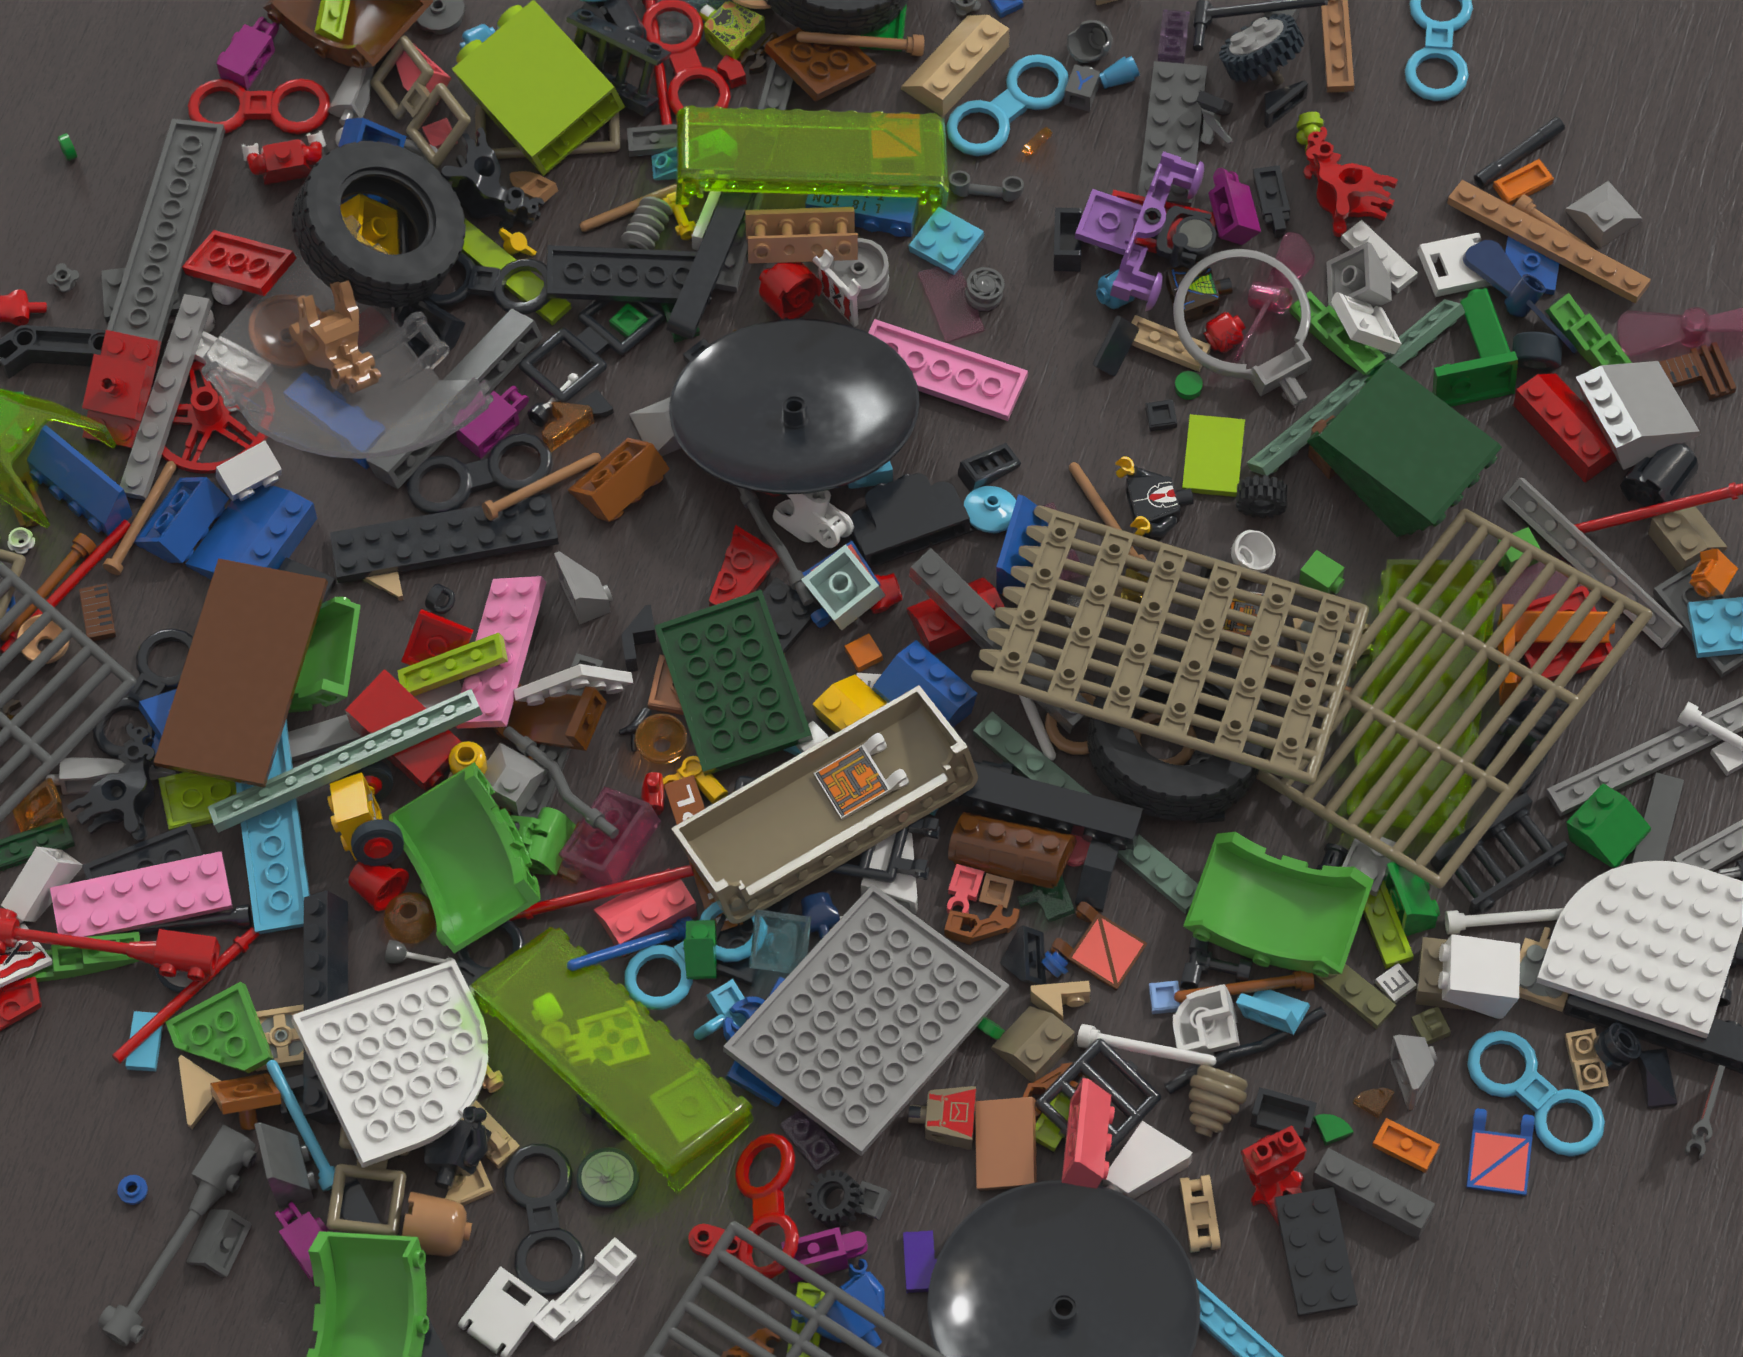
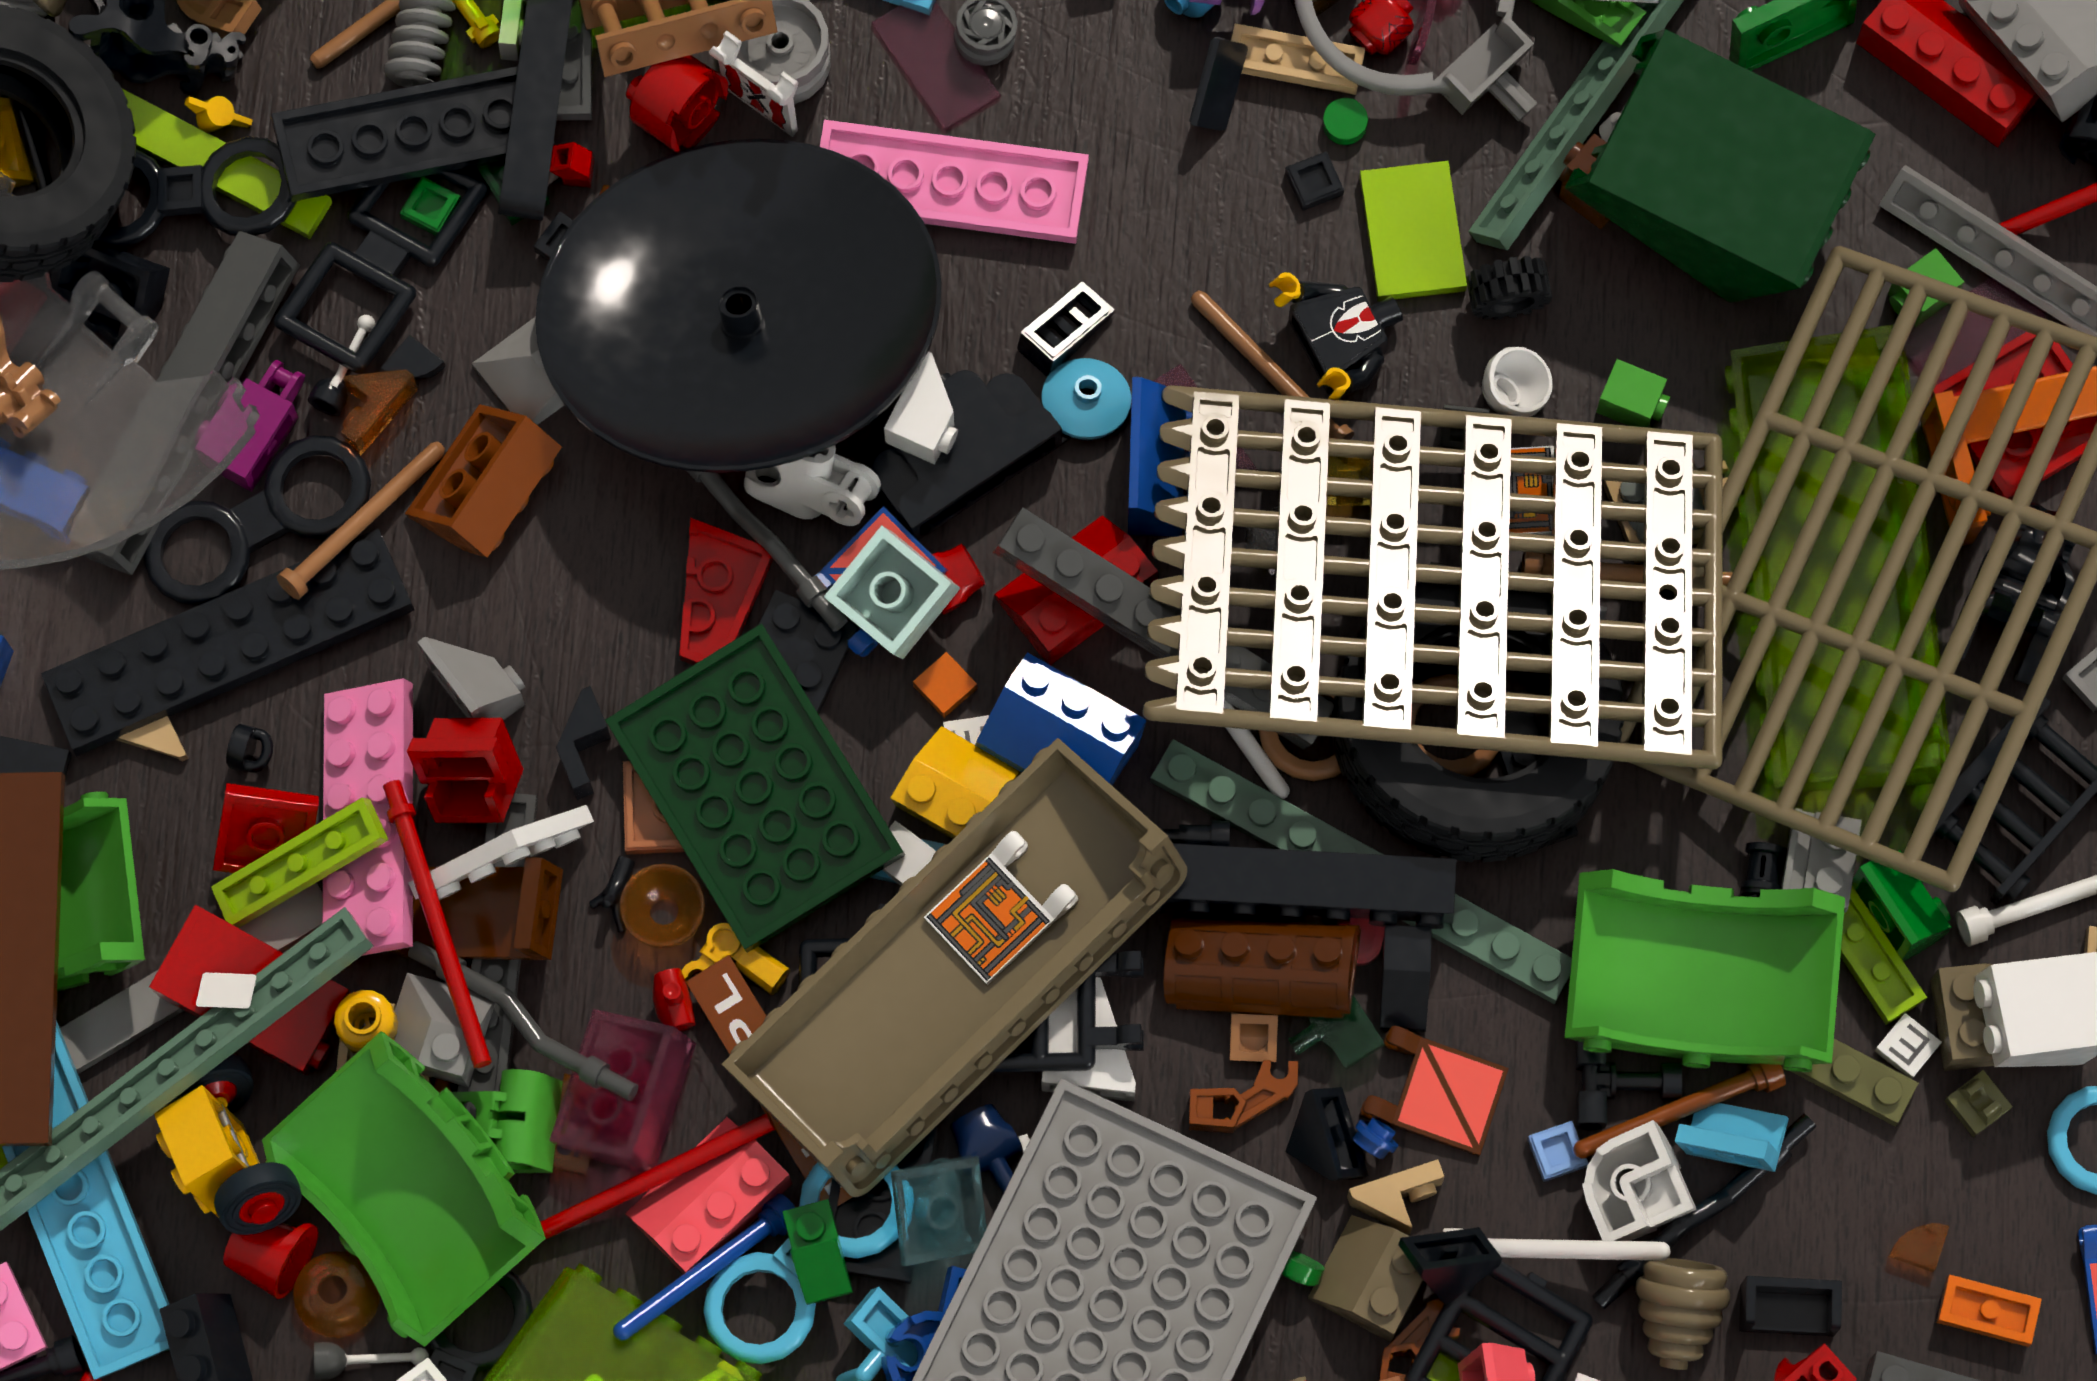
camera: 15 degrees left, 10 degrees up
(389, 721) = (226, 990): none -> white sticker
(519, 649) = (402, 814): none -> red bar
(565, 634) = (468, 769): none -> red plate
(719, 314) = (573, 164): none -> red piece
(886, 491) = (923, 416): none -> white slope
(964, 886) = (1202, 1040): coral plate -> none
(1080, 1038) = (1451, 1260): none -> black slope
(1332, 1128) = (1869, 1307): green tile -> none
(1412, 1066) = (1971, 1184): light grey slope -> none

